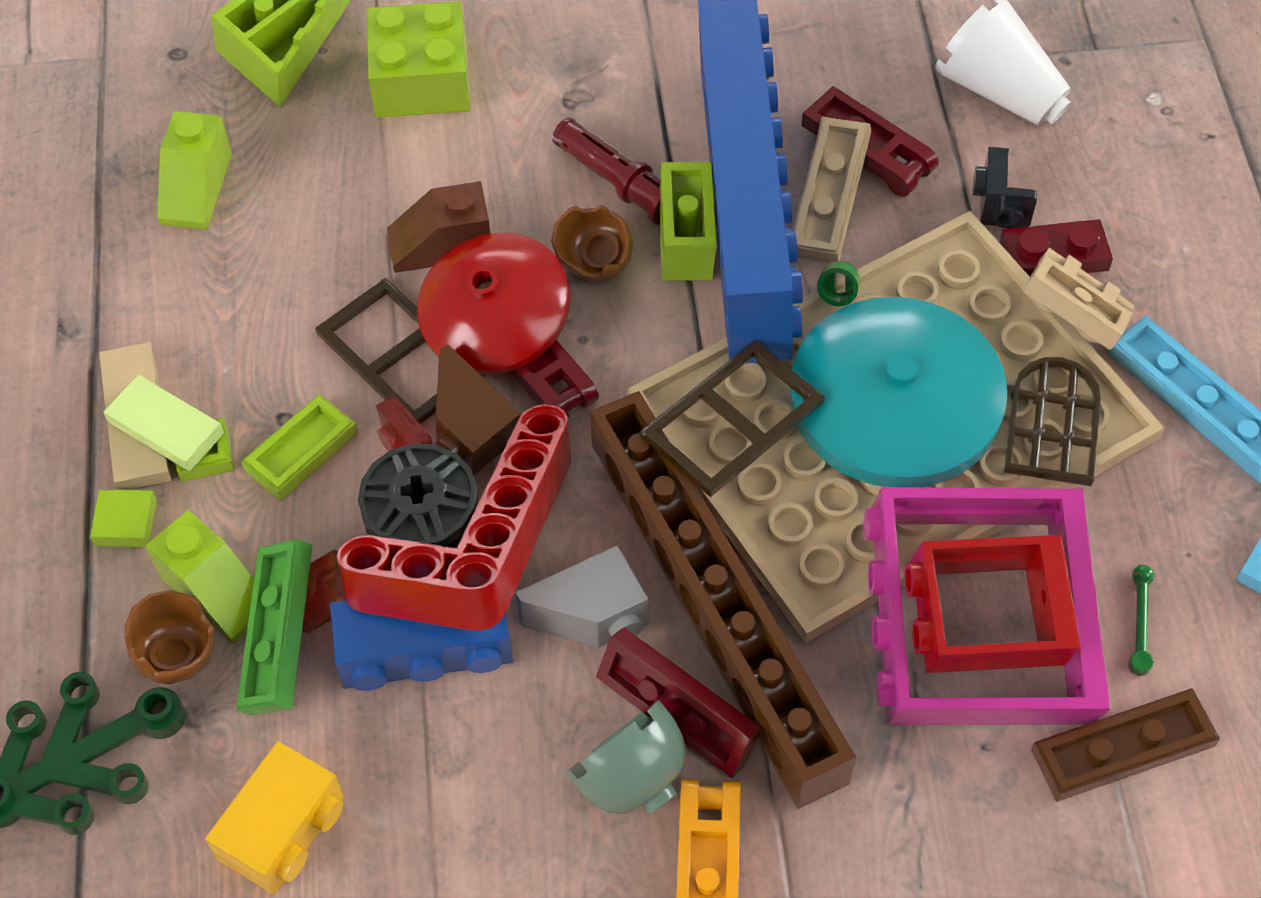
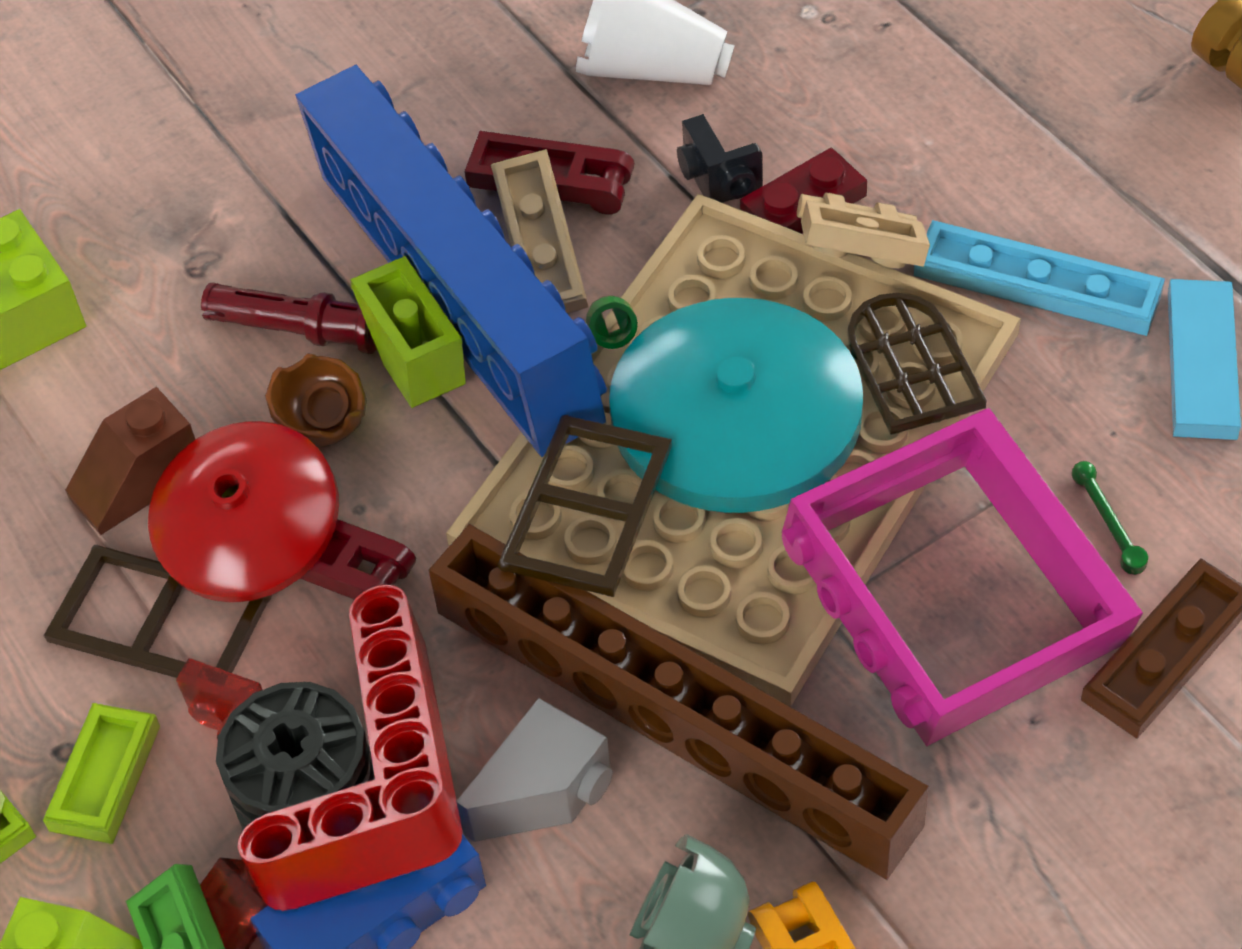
camera: 25 degrees left, 5 degrees down
(470, 412) = (283, 634): reddish brown slope -> none
(704, 718) = (648, 823): dark red plate -> none
(1048, 590) = (1021, 523): red window -> none

